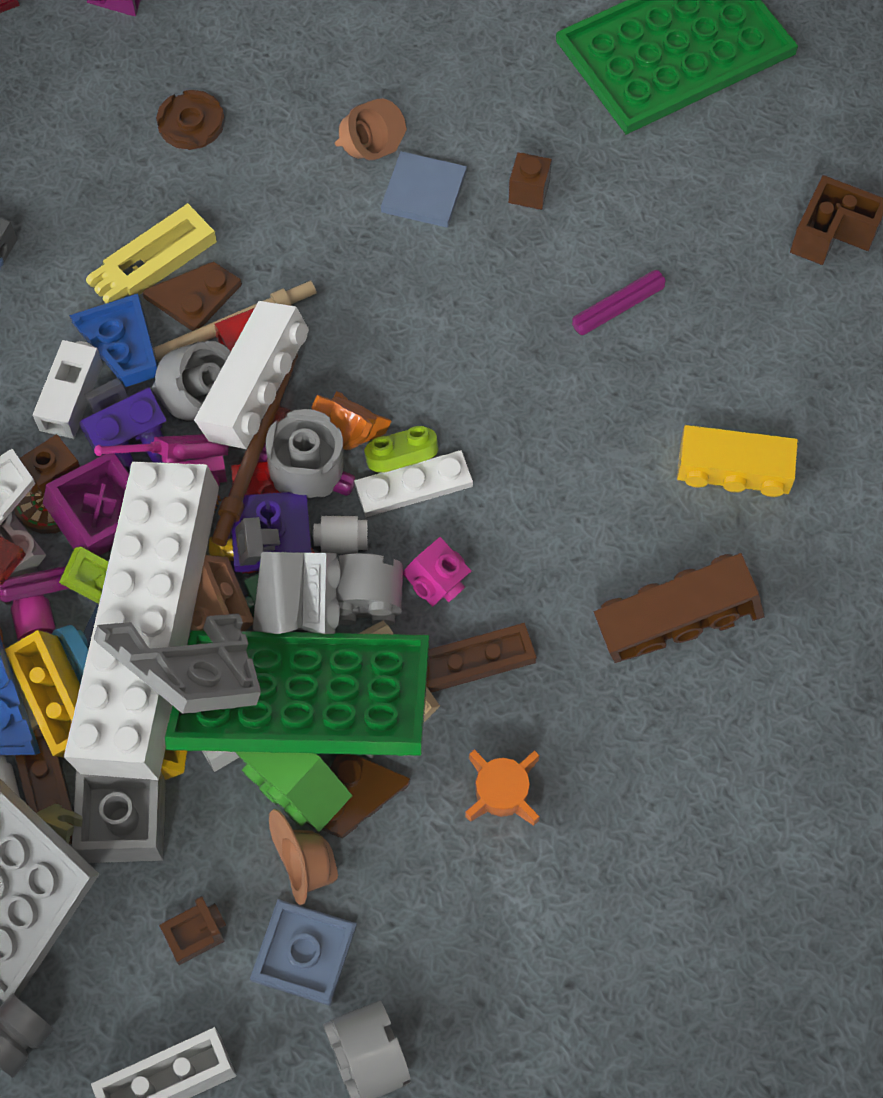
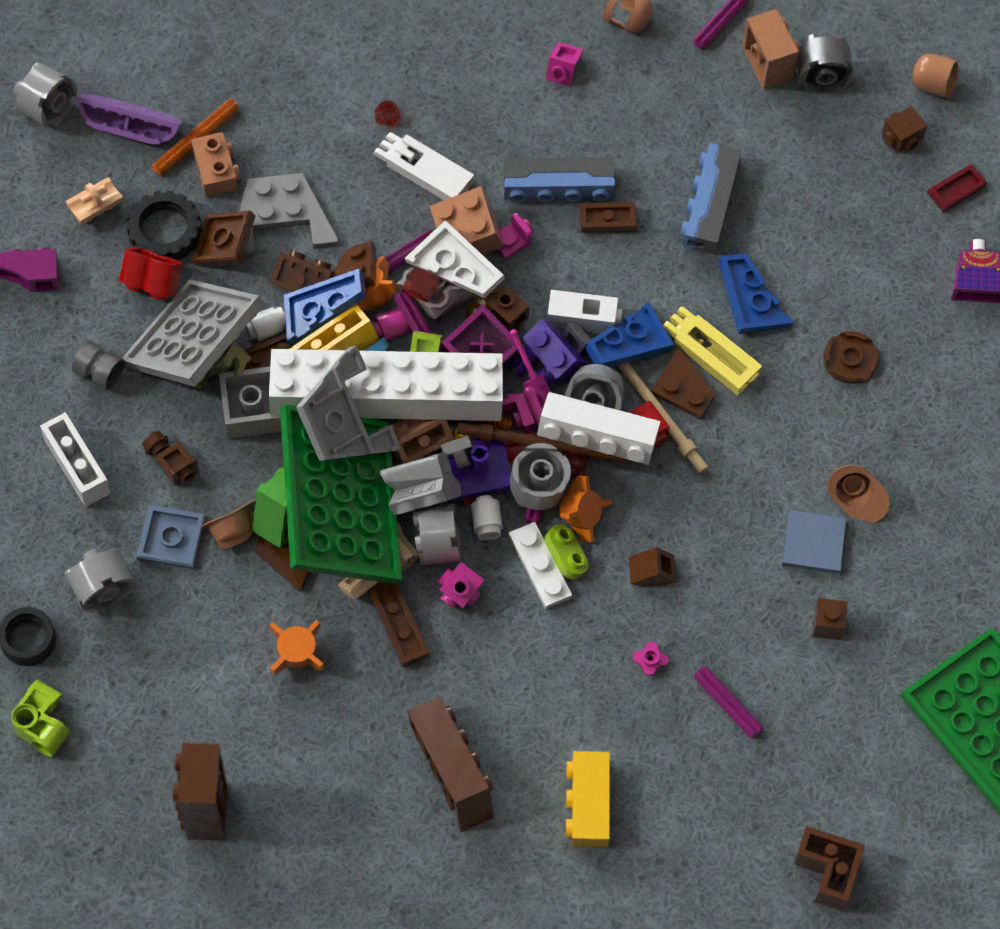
camera: 80 degrees right, 0 degrees up
(96, 207) = (749, 298): none -> blue wing
(155, 961) = (155, 443): none -> reddish brown plate
(437, 358) = (652, 568): none -> reddish brown brick
(552, 384) = (650, 667): none -> dark pink plate
(731, 916) = (201, 791): none -> reddish brown brick

